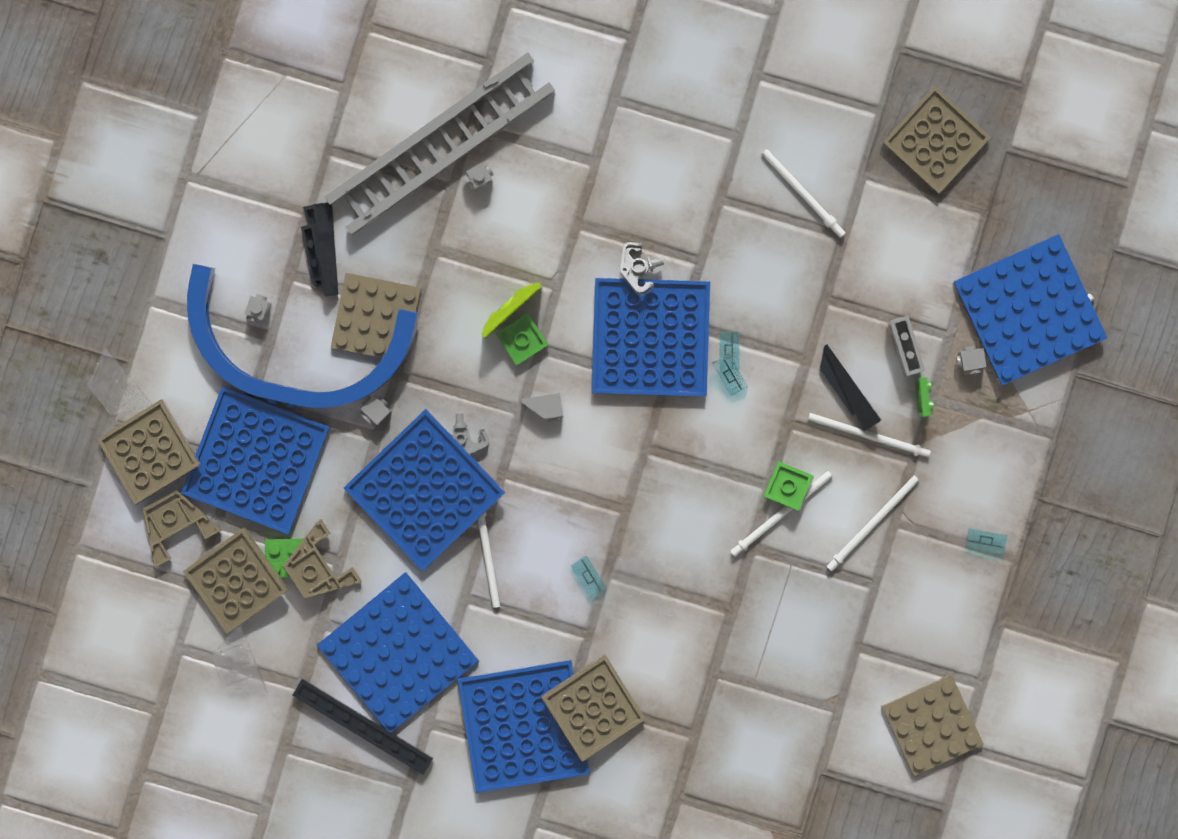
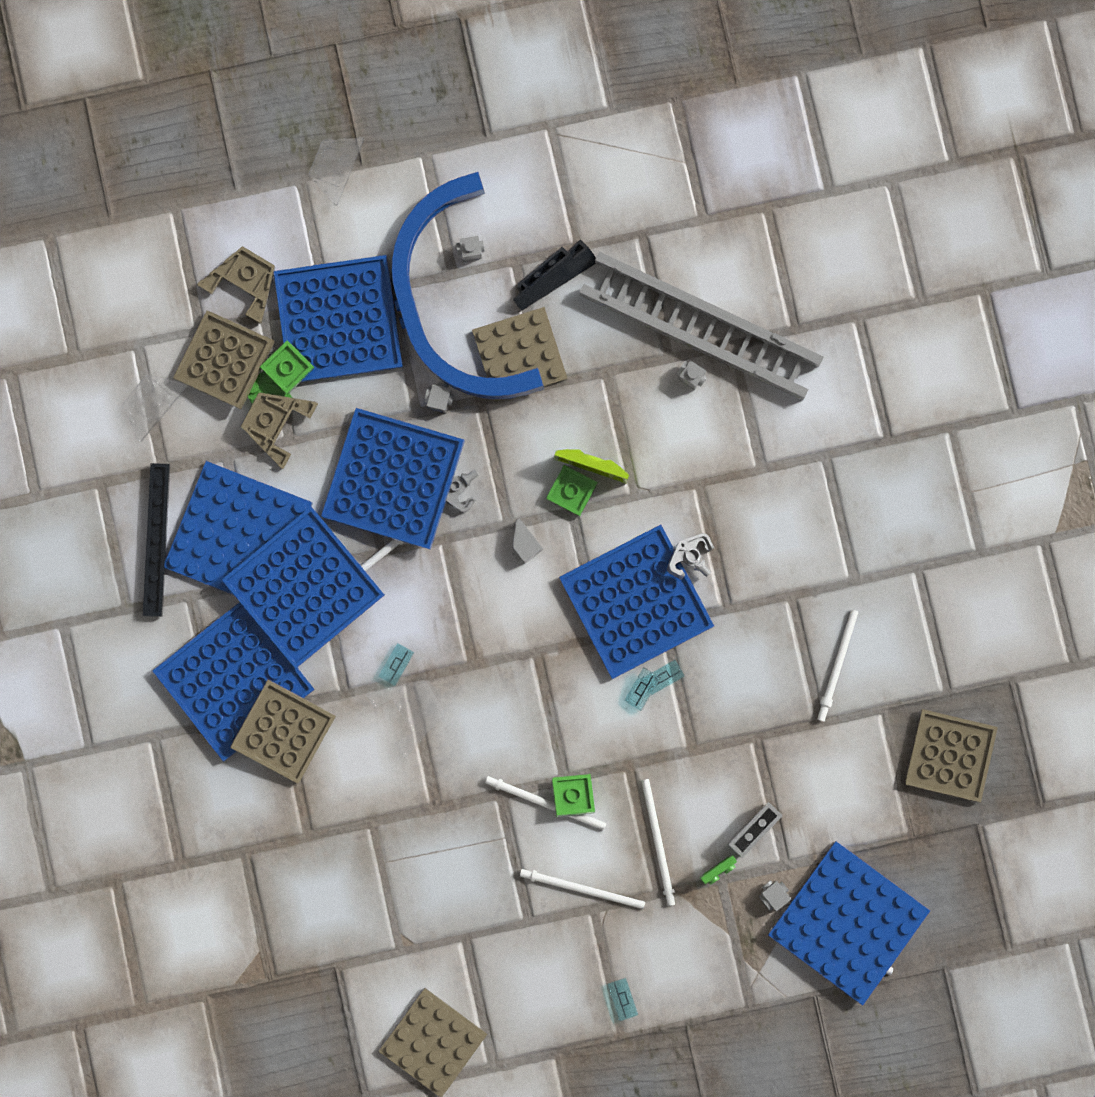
camera: 60 degrees right, 5 degrees down
(149, 452) = (294, 224): dark tan plate -> none
(274, 528) = (287, 367): none -> bright green plate
(477, 621) = (303, 587): none -> blue plate
(847, 389) = (687, 800): black wedge -> none

